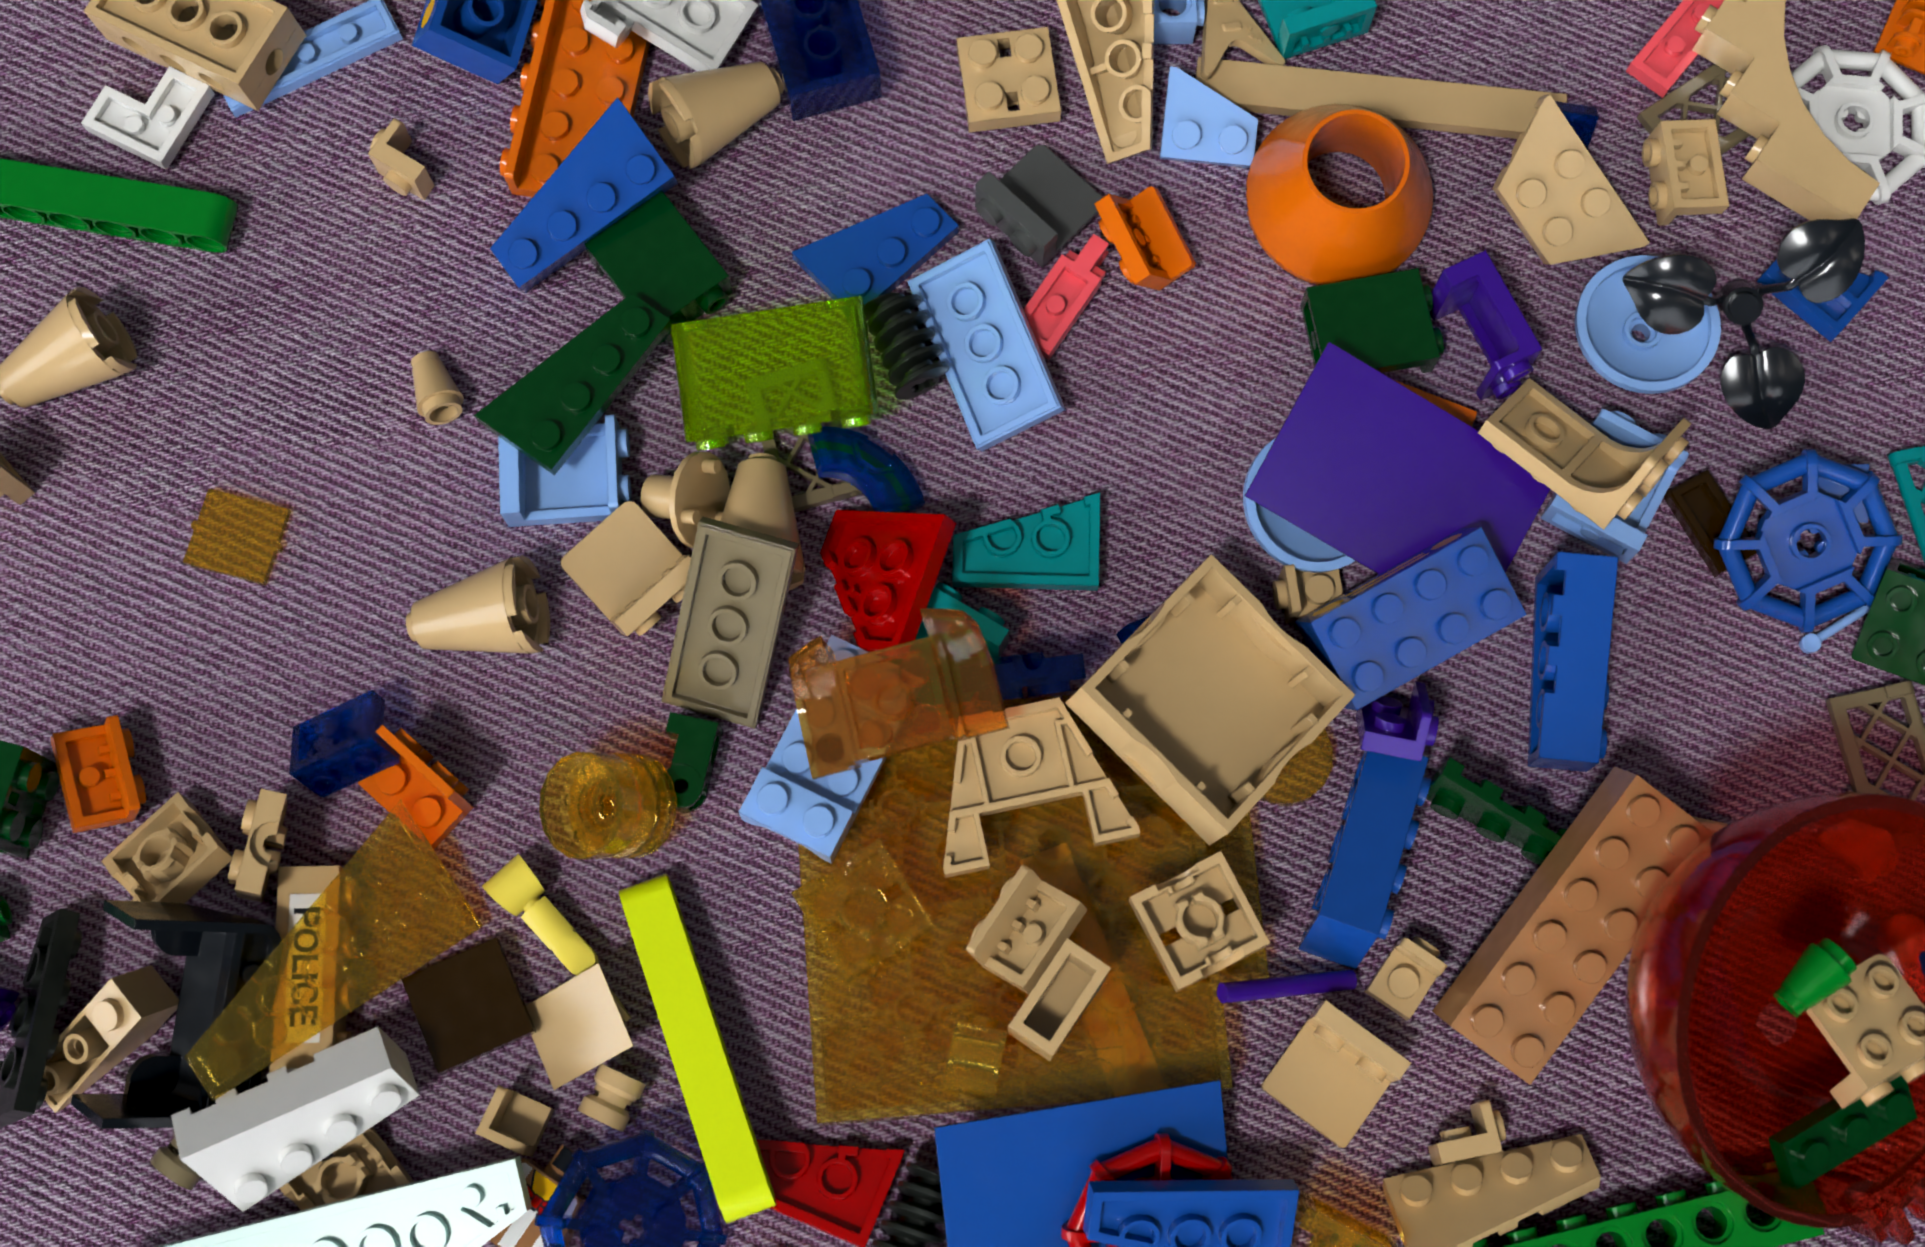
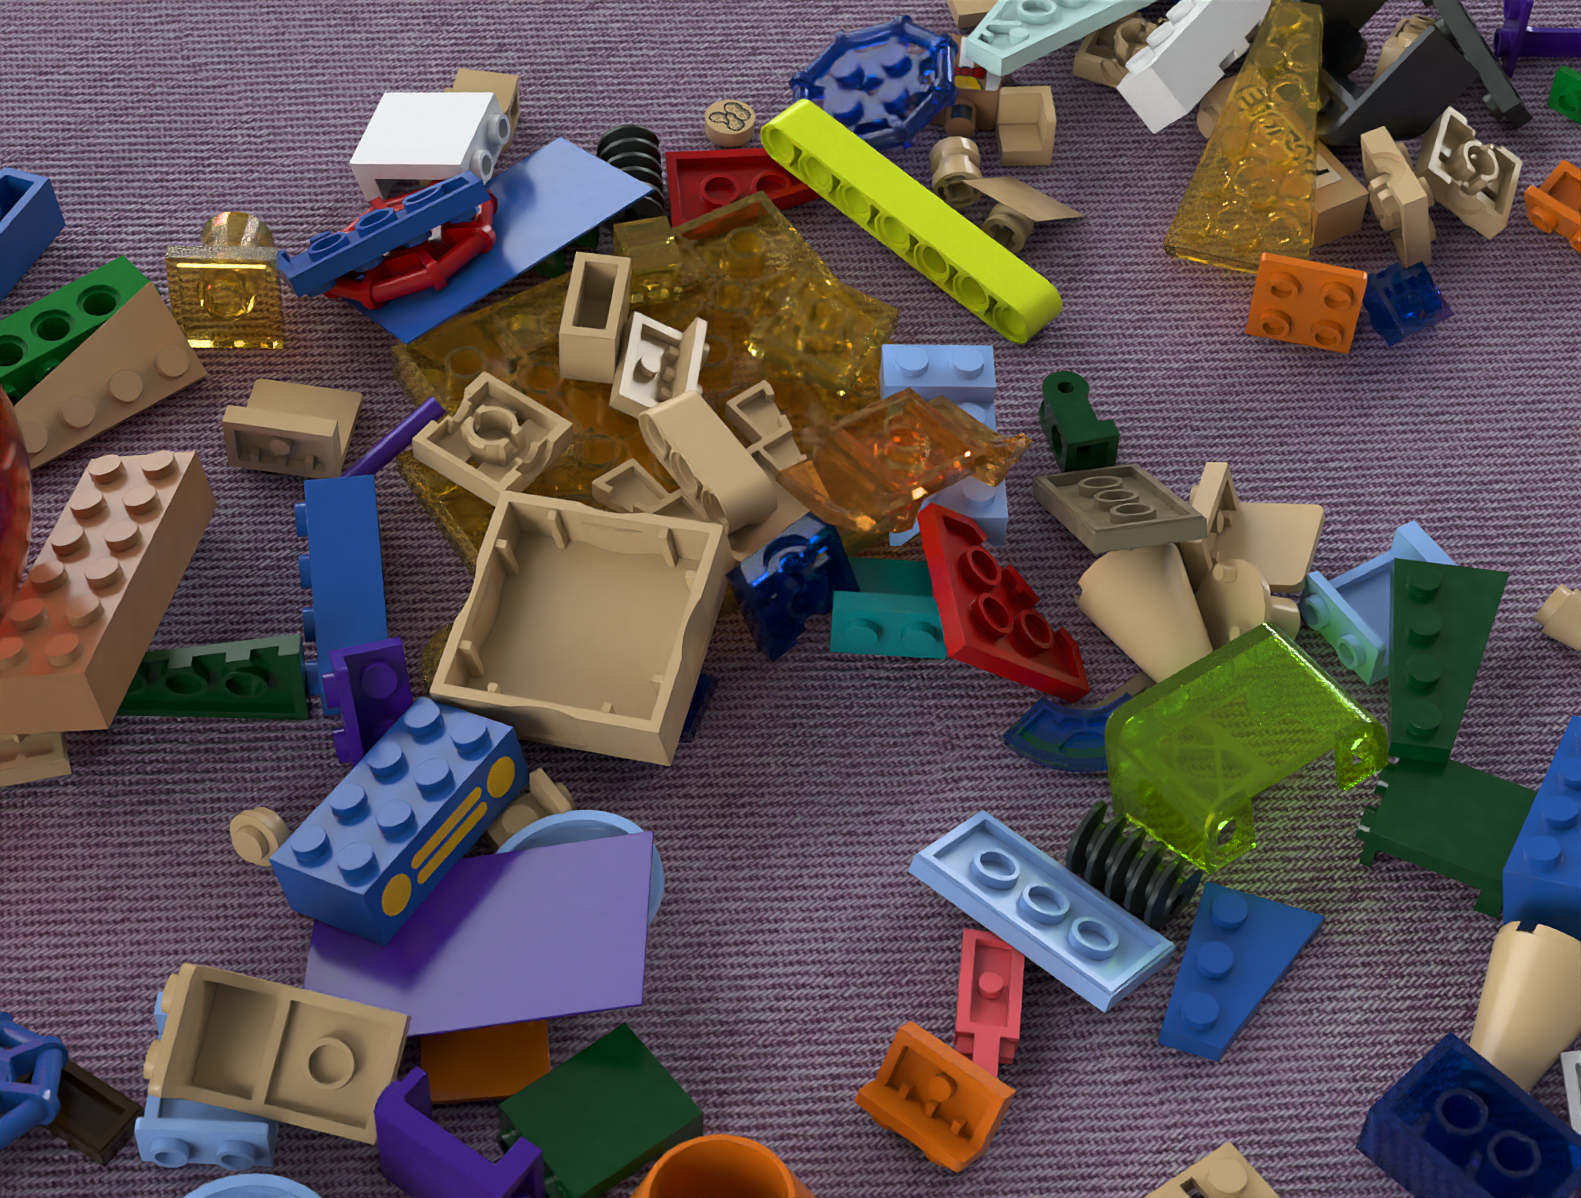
camera: 150 degrees right, 25 degrees down
(468, 1005) = (1126, 187): dark brown tile -> none
(485, 612) = (1351, 448): tan cone -> none
(519, 891) = (1157, 265): light yellow piece -> none
(607, 805) = (1118, 330): clear yellow wheel -> none
(1033, 552) = (855, 737): teal wing -> none
(1037, 204) = (1086, 1087): dark grey bracket -> none
(1047, 789) = (708, 461): none -> tan beam
(1406, 976) = (256, 533): tan bracket -> none
(1460, 1144) = (134, 418): tan bracket -> none
(1513, 670) = (258, 835): none -> tan plate
(1571, 661) = (197, 860): blue wedge -> none

